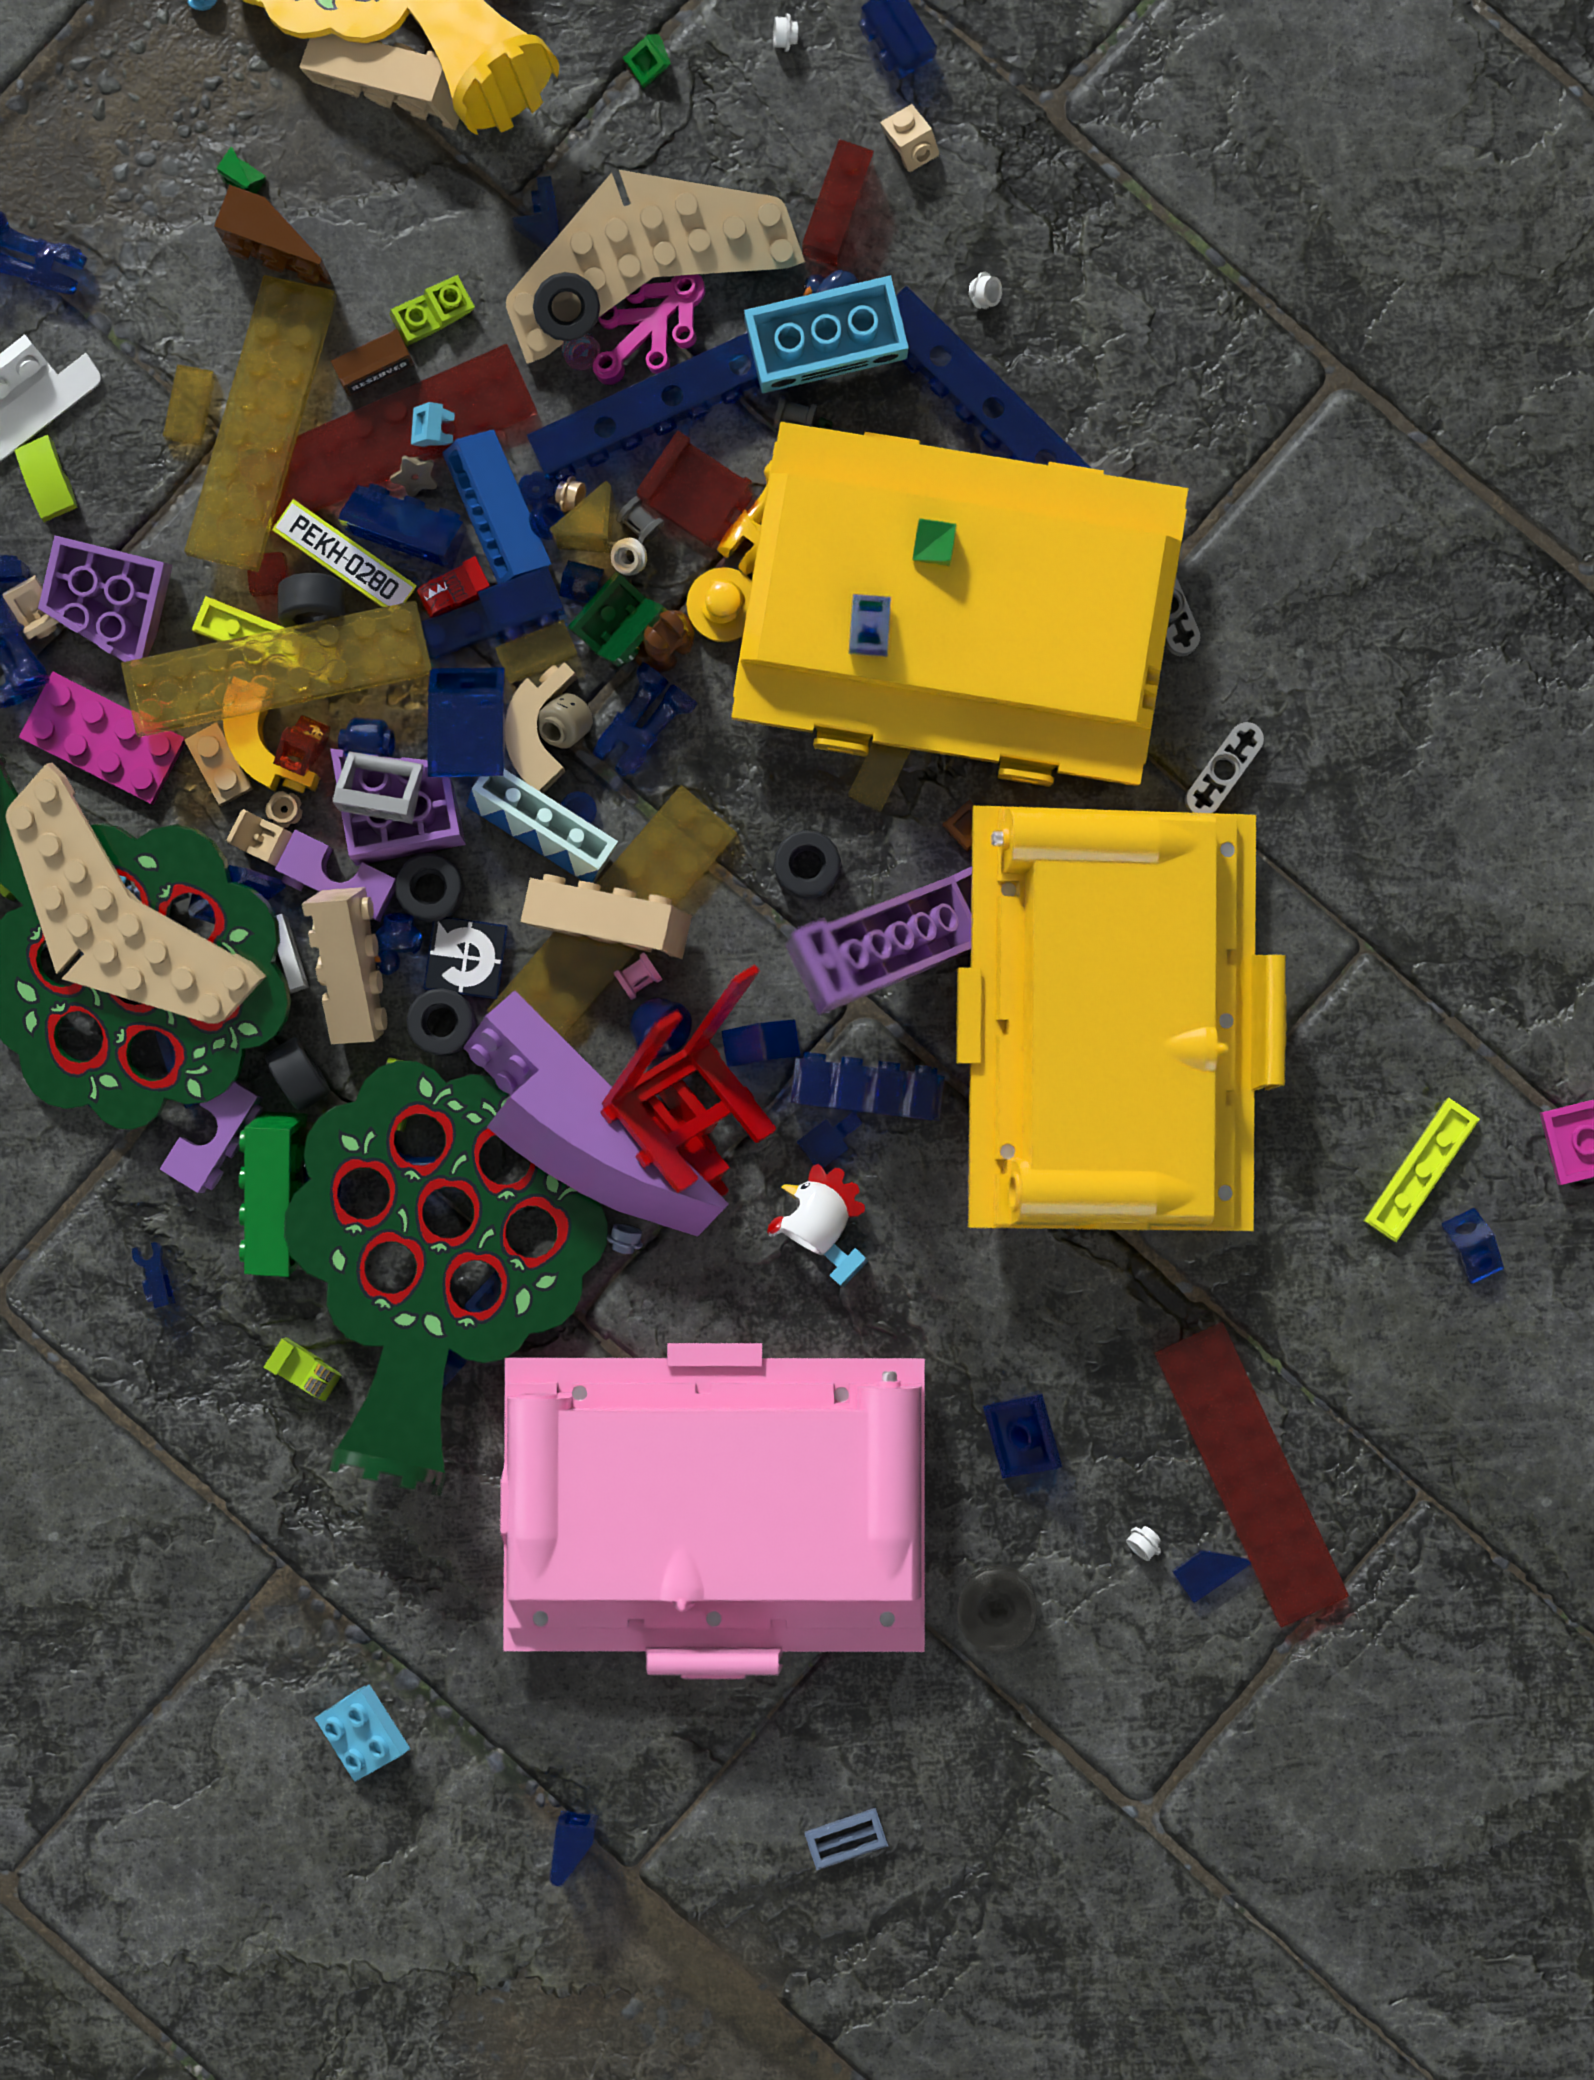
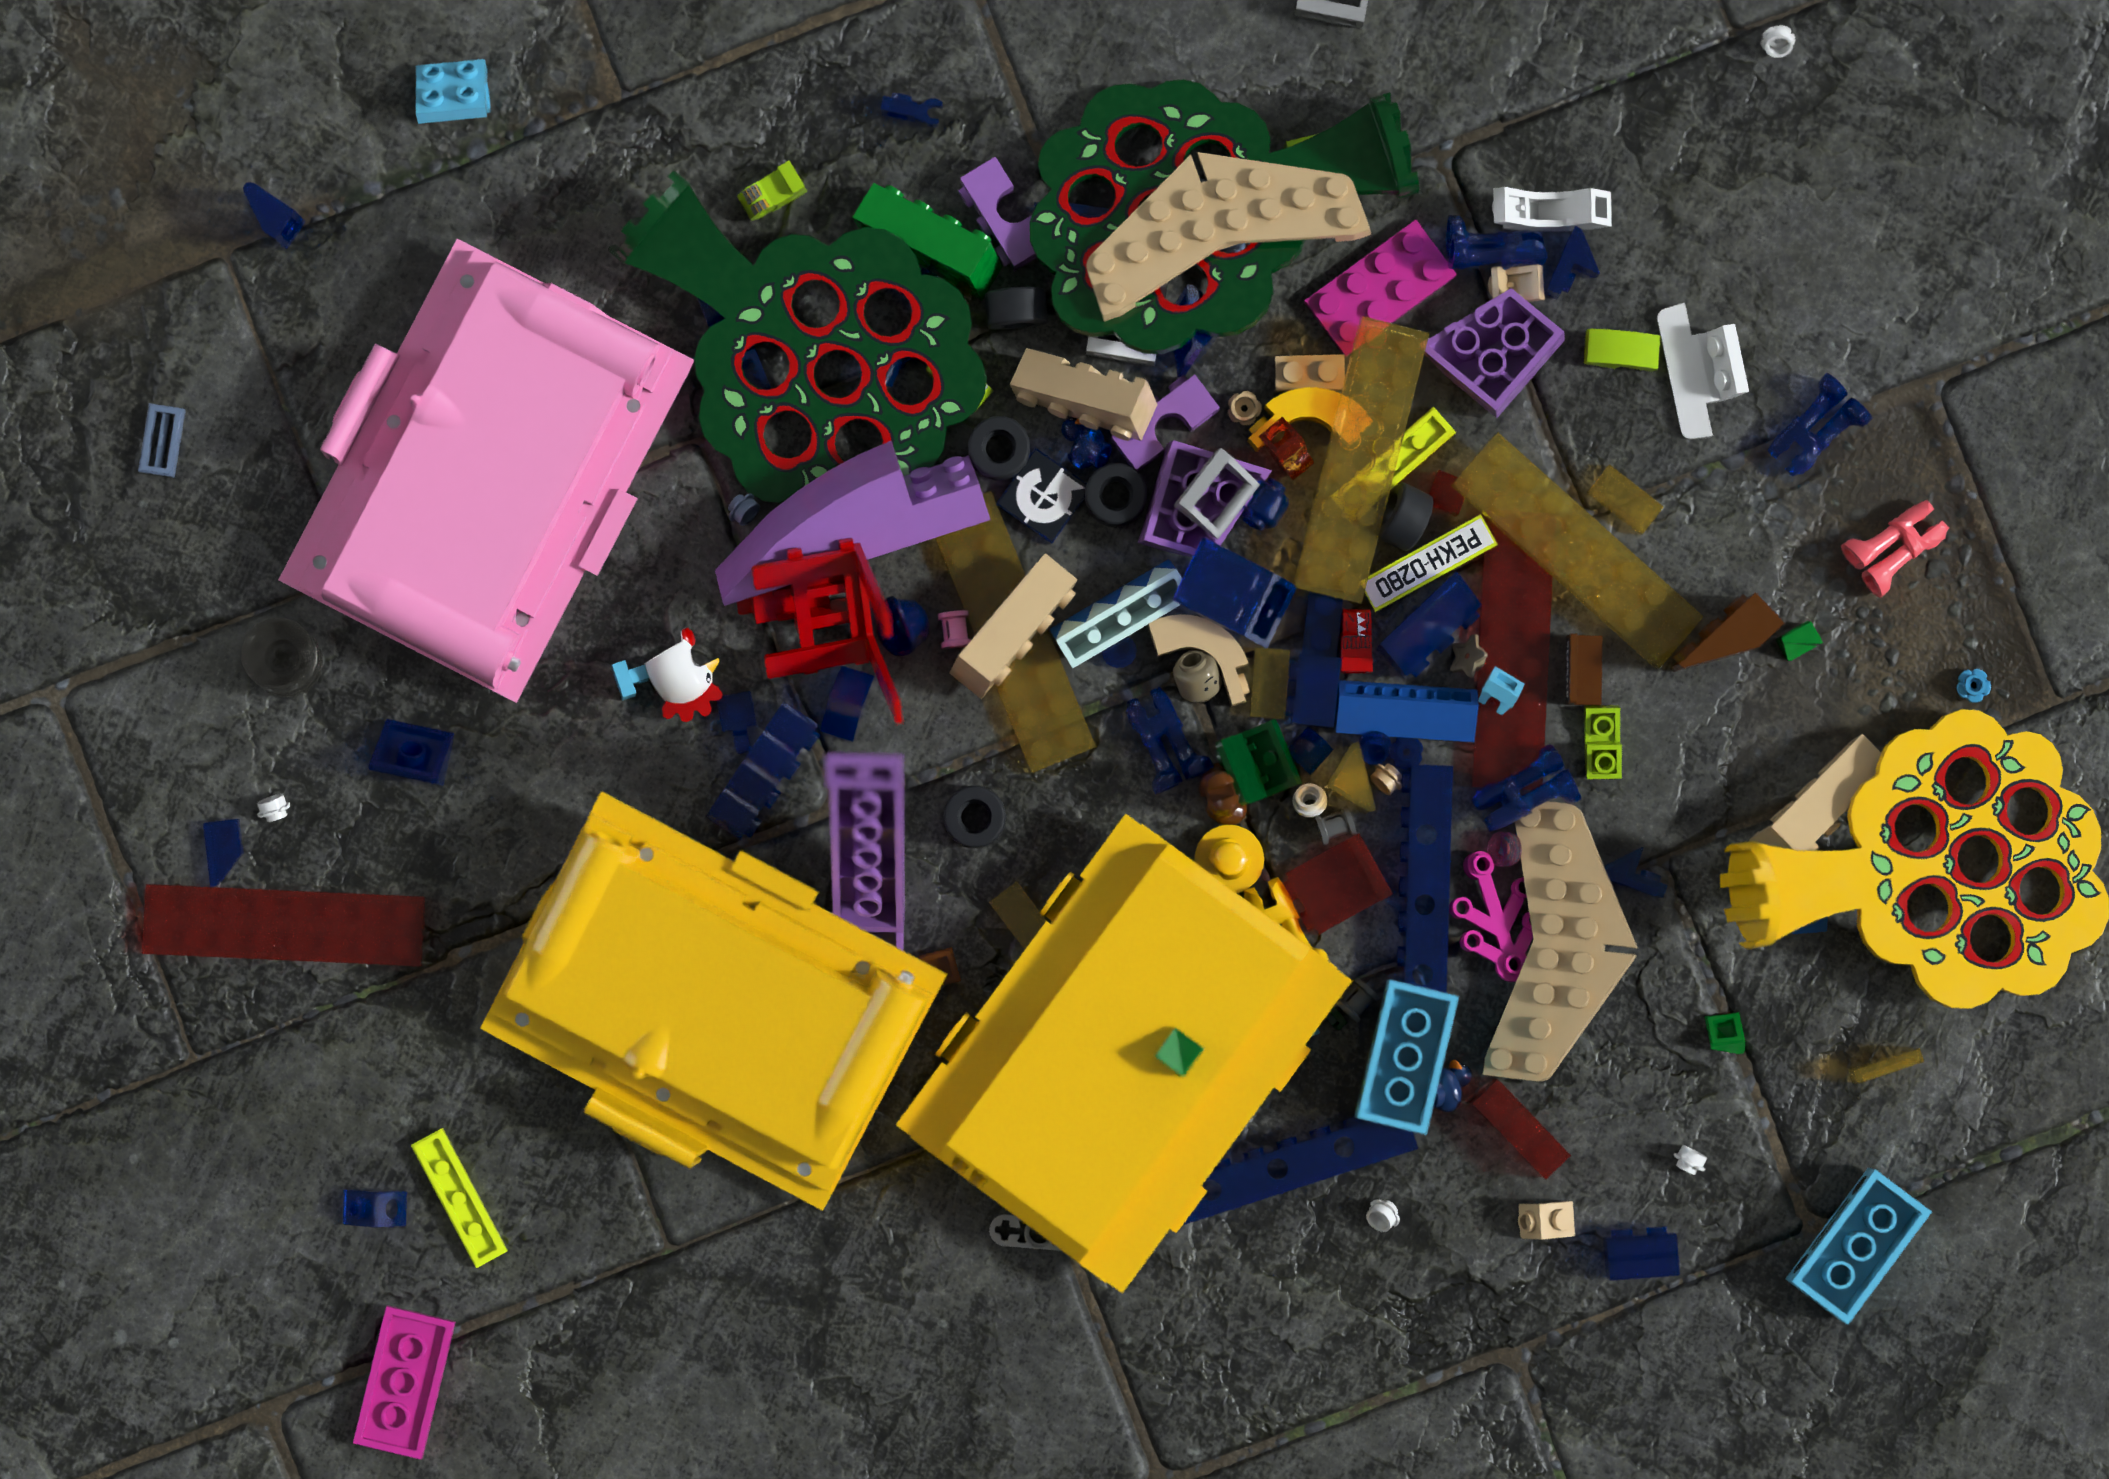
camera: 120 degrees right, 0 degrees up
(128, 155) = (1880, 575): none -> coral piece
(259, 837) = (1229, 375): tan bracket -> none
(525, 369) = (1518, 806): none -> clear blue piece
(589, 306) = (1521, 844): black tyre -> none
(869, 625) = (1135, 961): clear blue slope -> none
(1231, 741) = (879, 1234): light grey beam -> none

